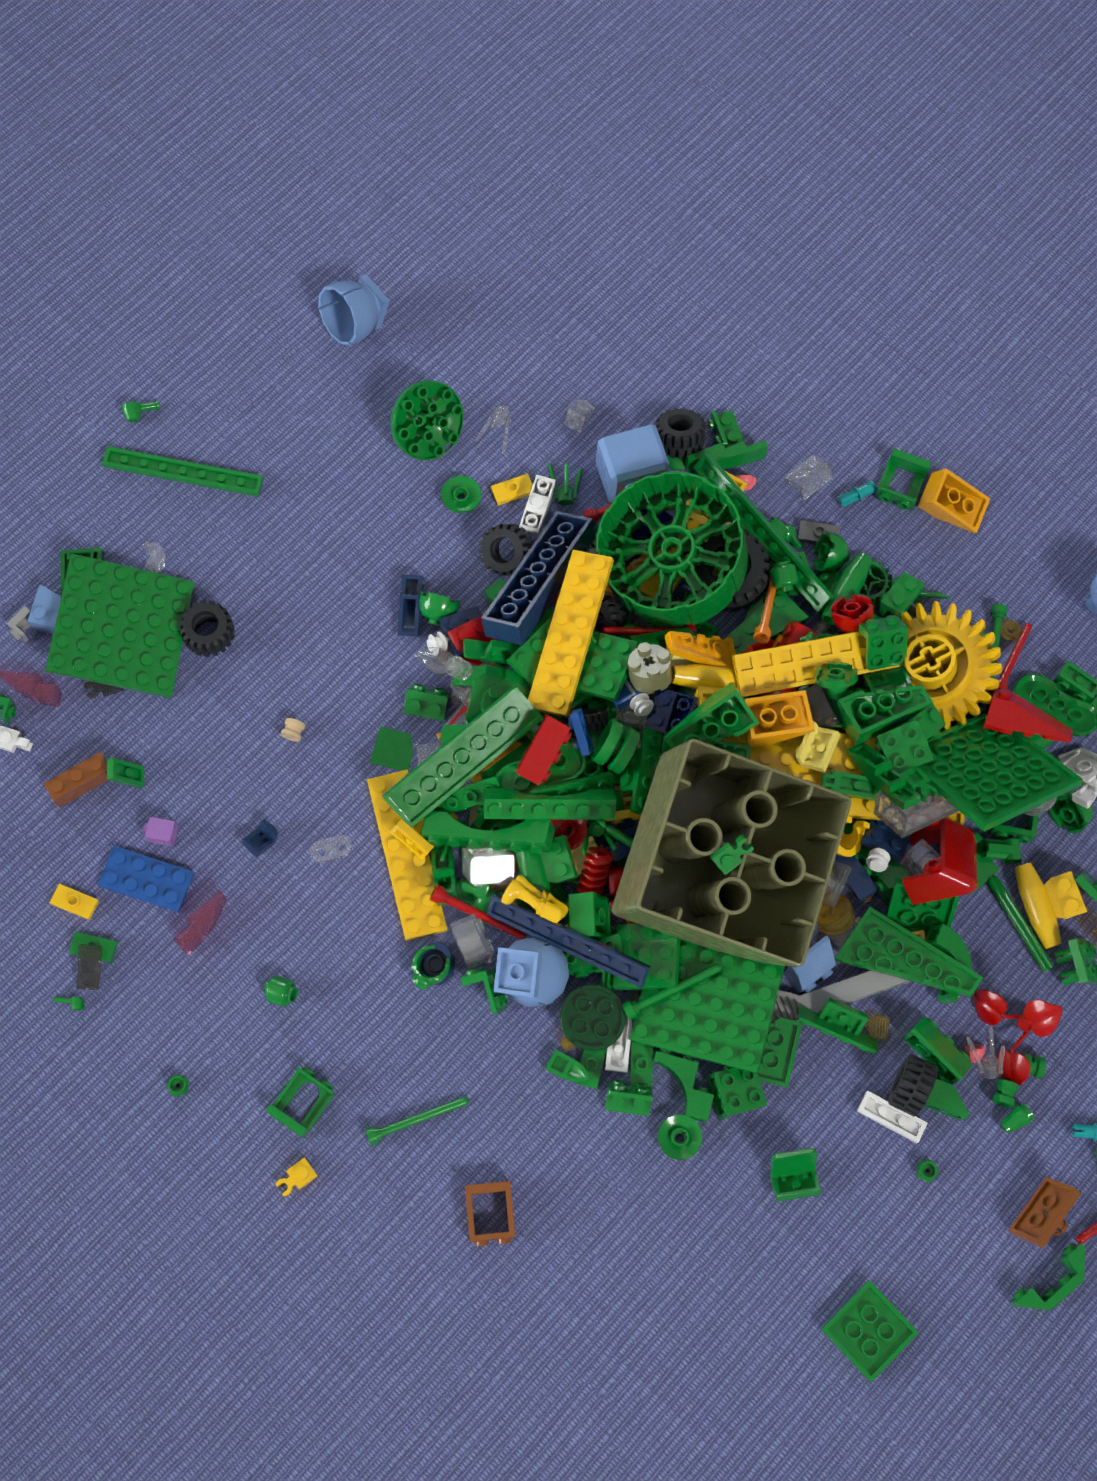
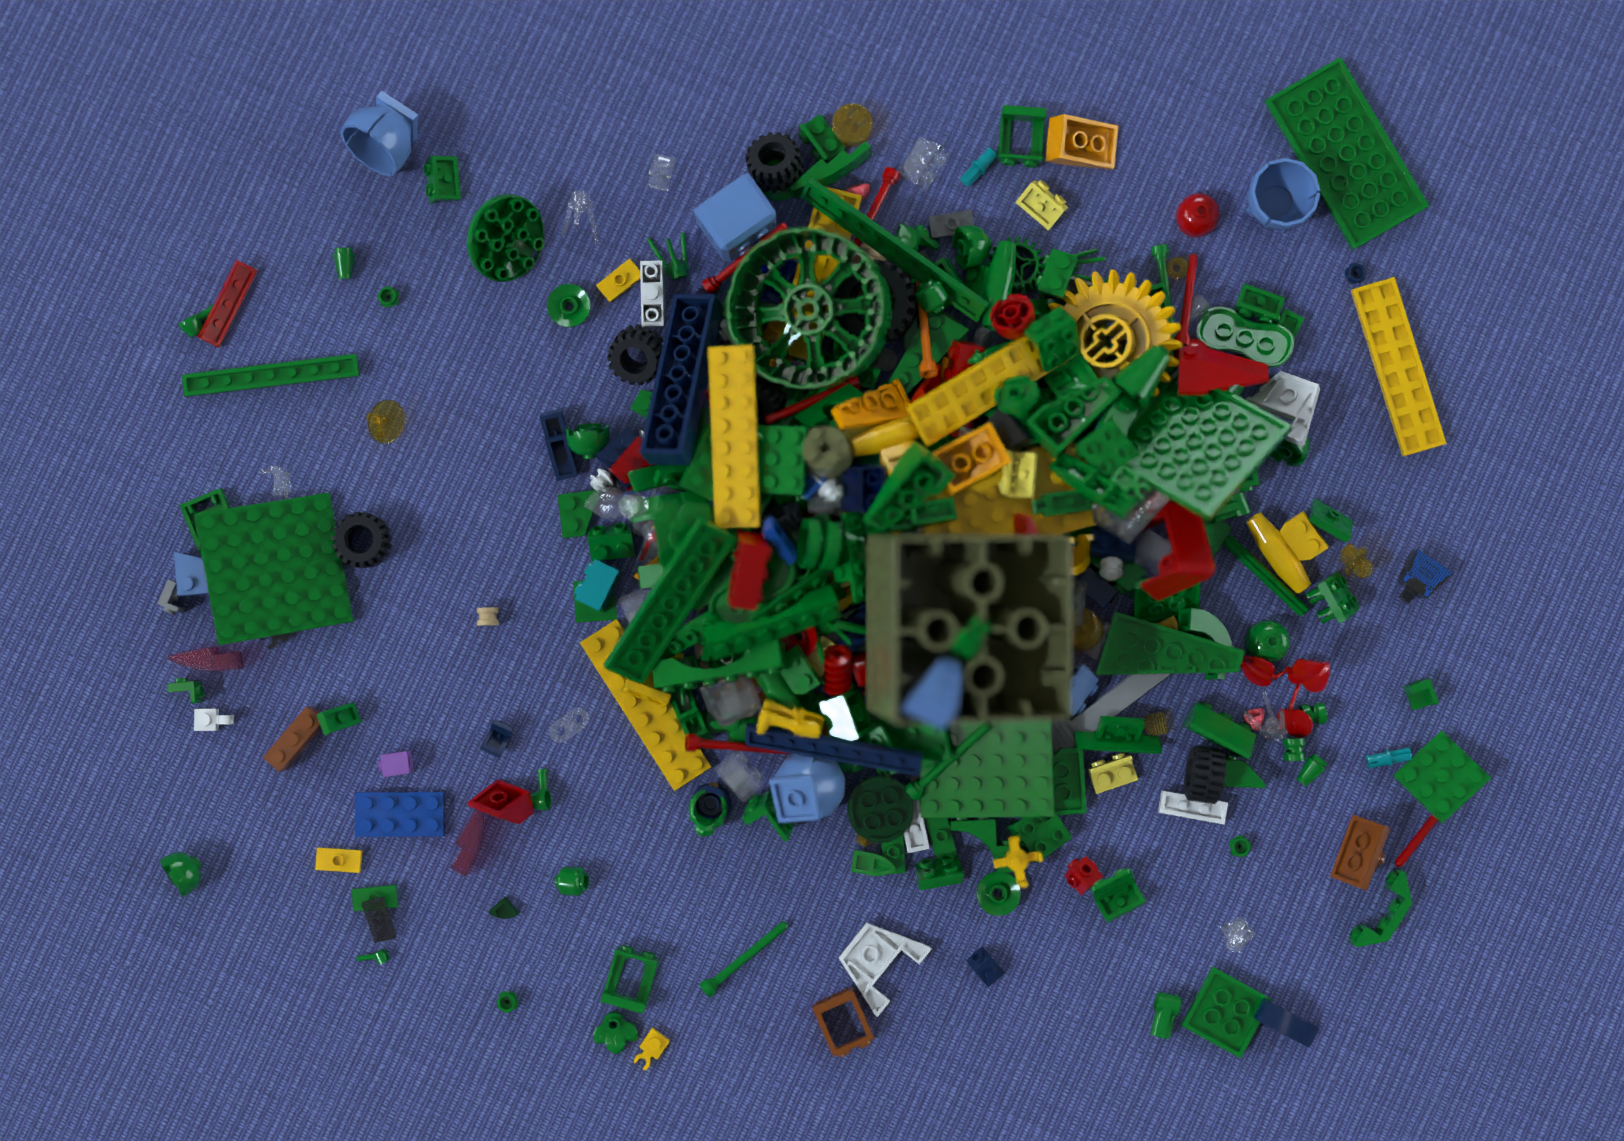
camera: 15 degrees left, 15 degrees up
(169, 403) = (227, 303): none -> red tile
(207, 998) = (504, 909): none -> dark green tile
(246, 897) = (504, 802): none -> red slope
(267, 537) = (386, 421): none -> clear yellow shield
(268, 1153) = (615, 1035): none -> green plate
(281, 401) = (344, 262): none -> green cone
(281, 906) = (542, 798): none -> green bar
(305, 436) = (384, 292): none -> green plate
(390, 362) = (442, 179): none -> green bracket
(402, 731) = (598, 585): none -> teal brick
(403, 669) = (573, 514): none -> green wing
(537, 1157) = (871, 954): none -> white wing
(645, 1205) = (985, 966): none -> dark blue bracket
(683, 892) = (938, 694): none -> medium blue wedge
(709, 1103) = (1017, 860): none -> yellow piece
(725, 625) = (886, 360): none -> clear smoke tile
(757, 425) = (852, 124): none -> clear yellow head
(766, 1144) = (1082, 874): none -> red brick
(776, 479) = (890, 177): none -> red piece
(810, 1307) = (1166, 1008): none -> green piece
(823, 1059) = (1112, 773): none -> light yellow bracket
(901, 1254) = (1237, 934): none -> clear rock
(903, 540) = (1042, 204): none -> light yellow bracket
(927, 1361) = (1286, 1022): none -> dark blue slope
(957, 696) = (1143, 374): none -> green cone
(1007, 981) = (1267, 641): none -> green cylinder
(1021, 668) = (1198, 308): none -> clear cone
(1041, 592) = (1197, 215): none -> red cylinder

